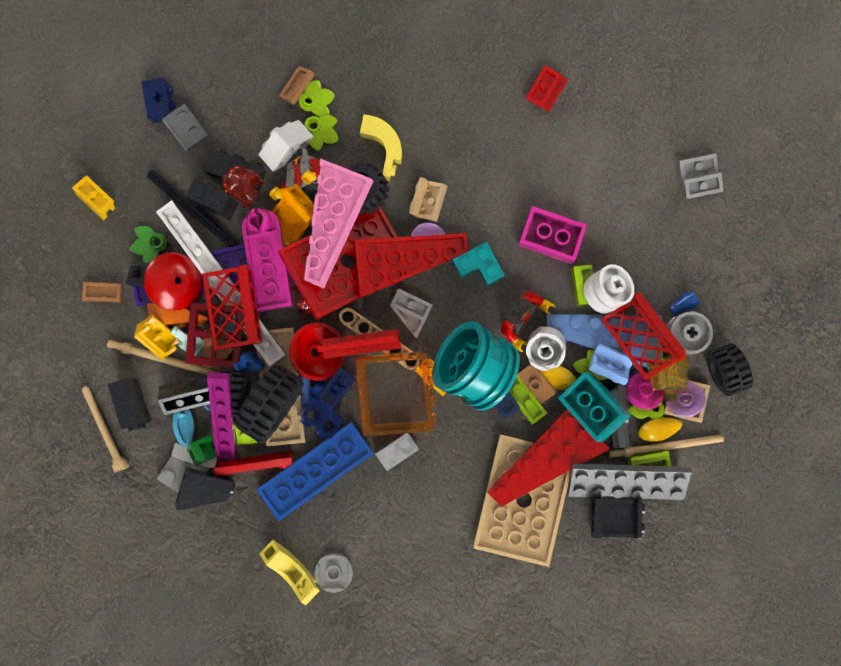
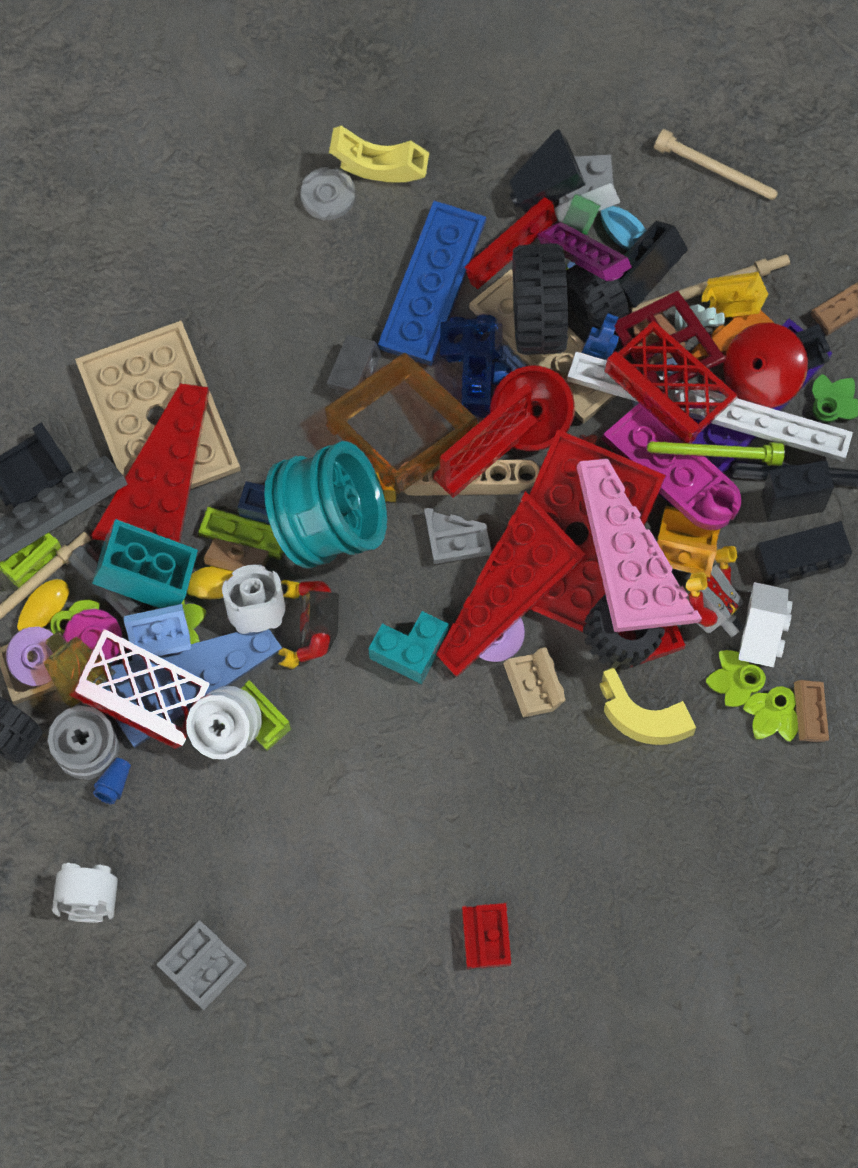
camera: 145 degrees right, 15 degrees down
(129, 404) = (705, 205): black brick -> none
(209, 234) = (771, 454): none -> lime piece
(241, 183) = (774, 525): clear red hair -> none
(552, 235) = (344, 744): dark pink brick -> none
(740, 249) = (85, 893): none -> white brick

